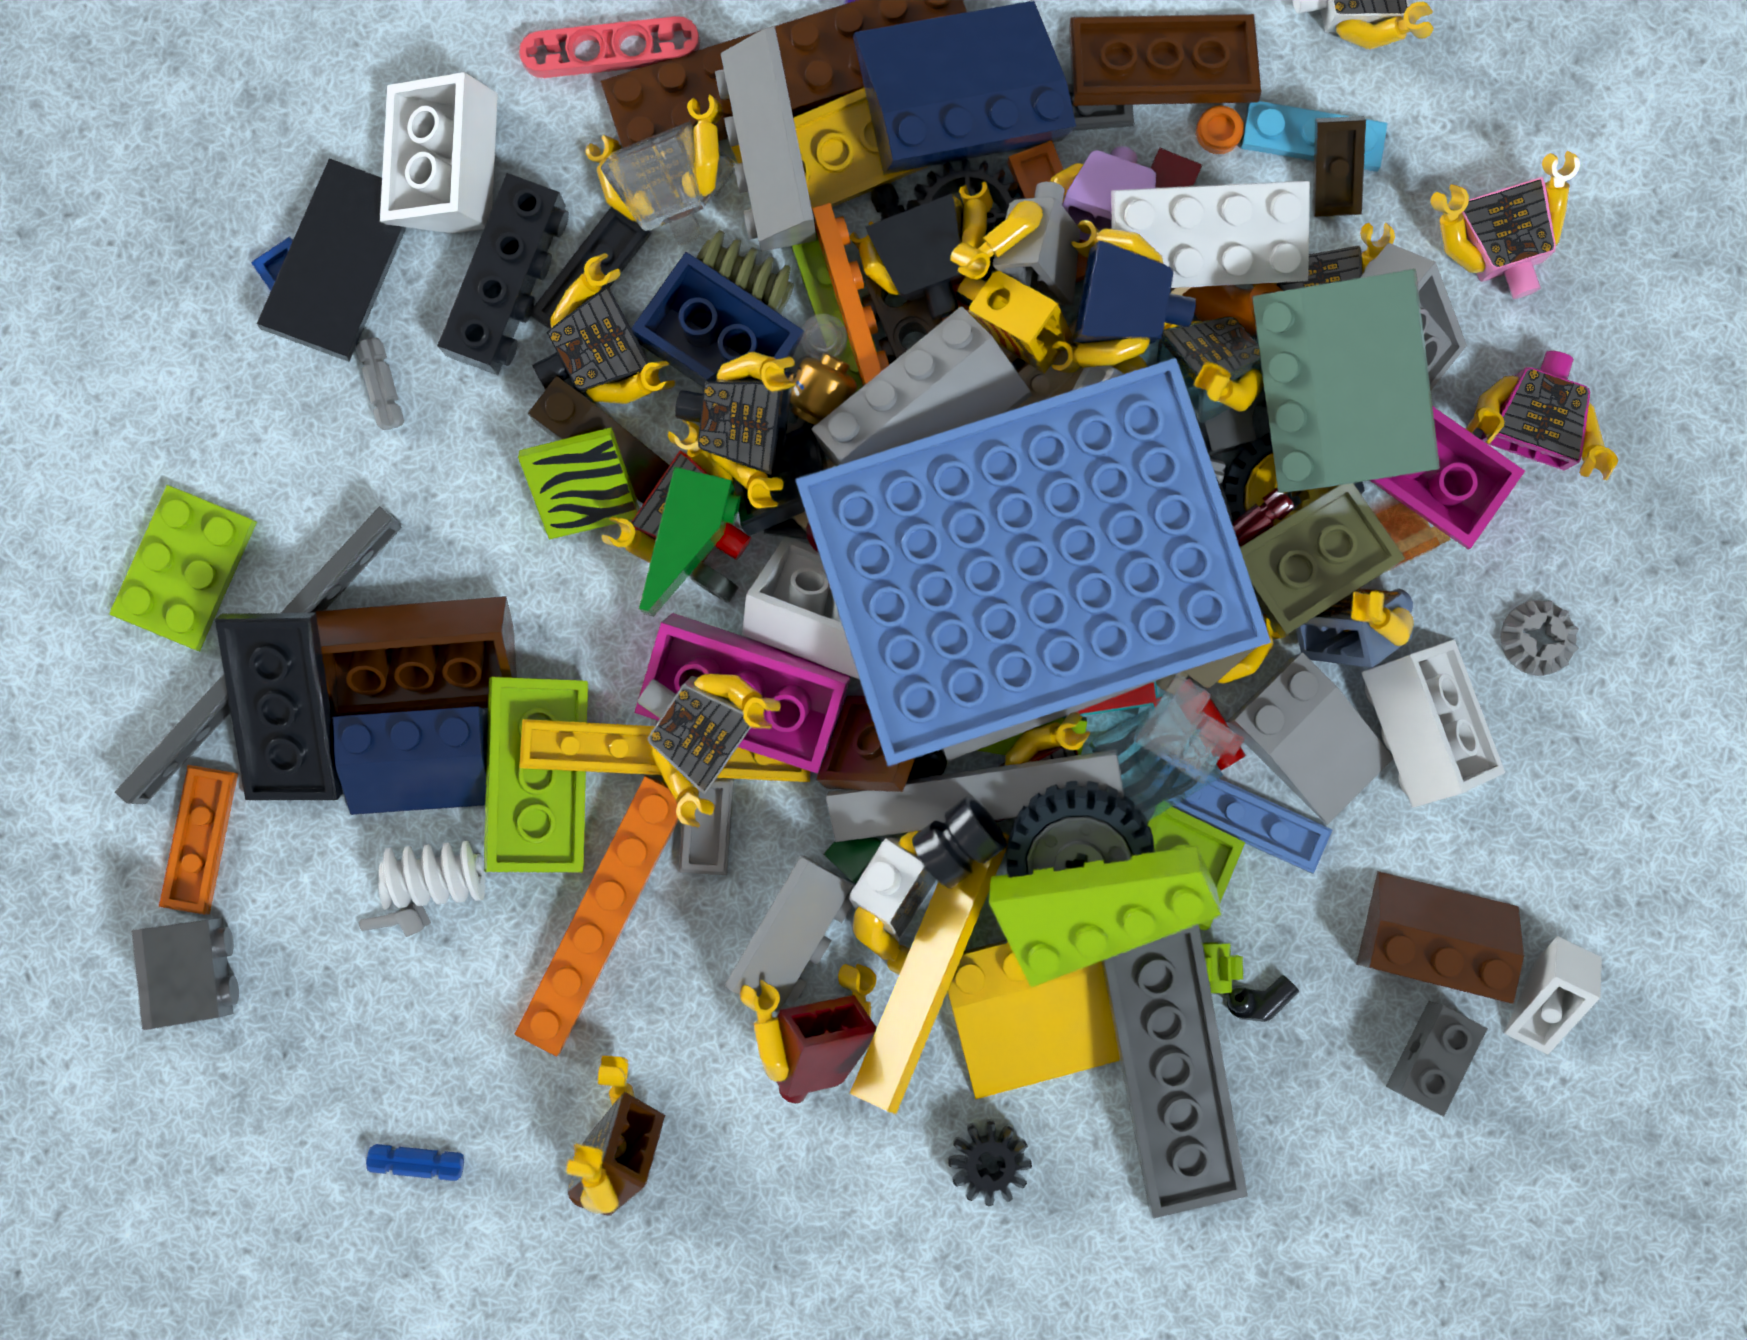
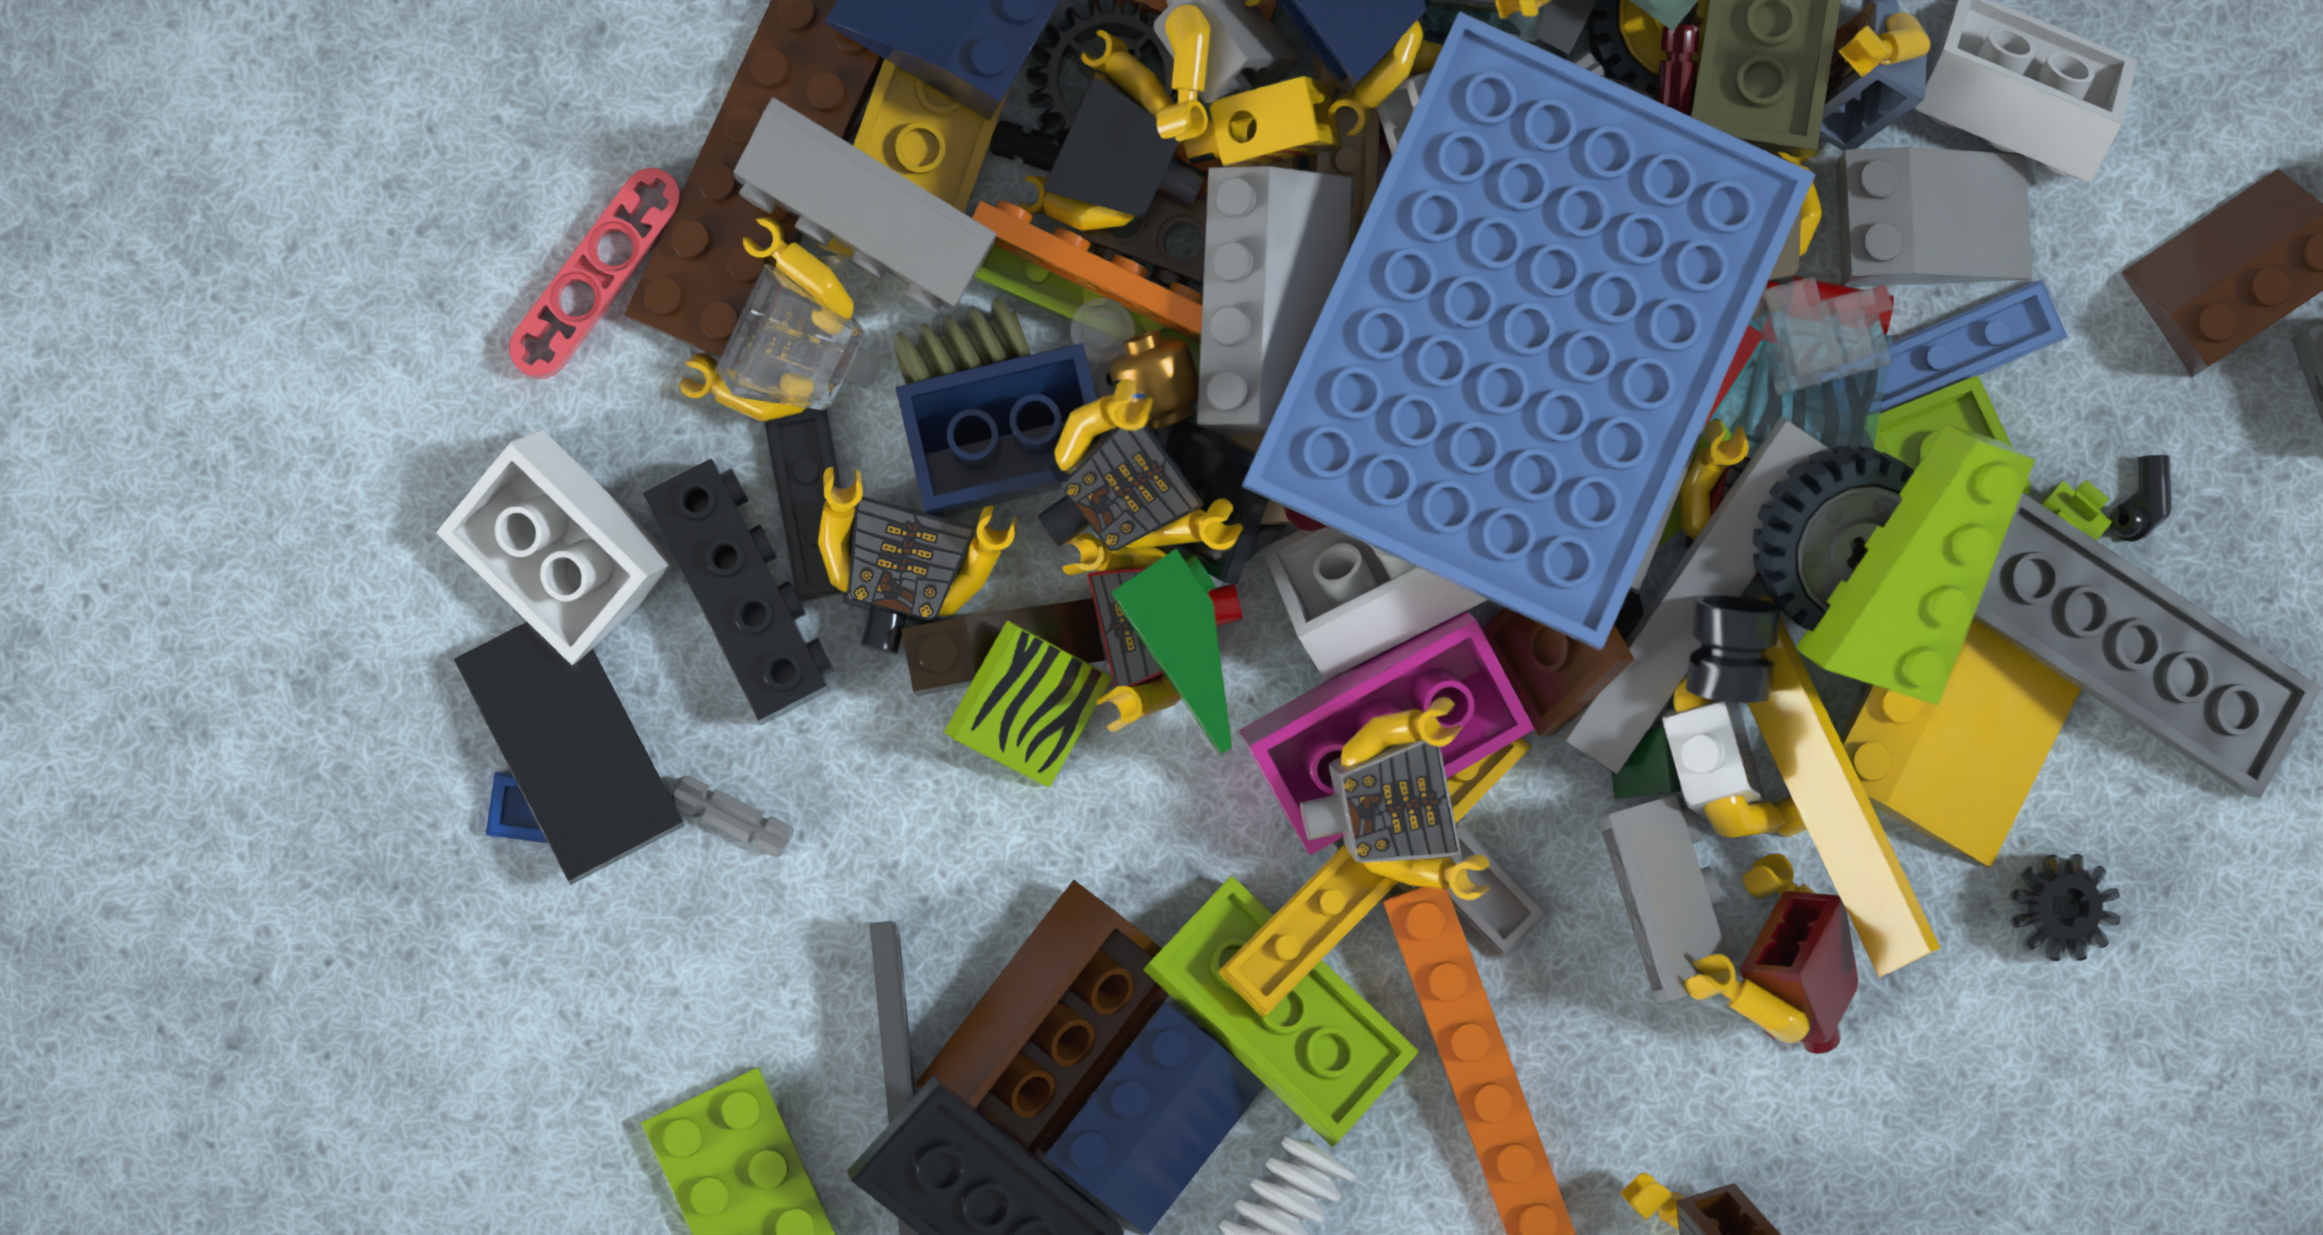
camera: 45 degrees left, 0 degrees up
(714, 582) = (1248, 661): pearl dark grey tile -> none

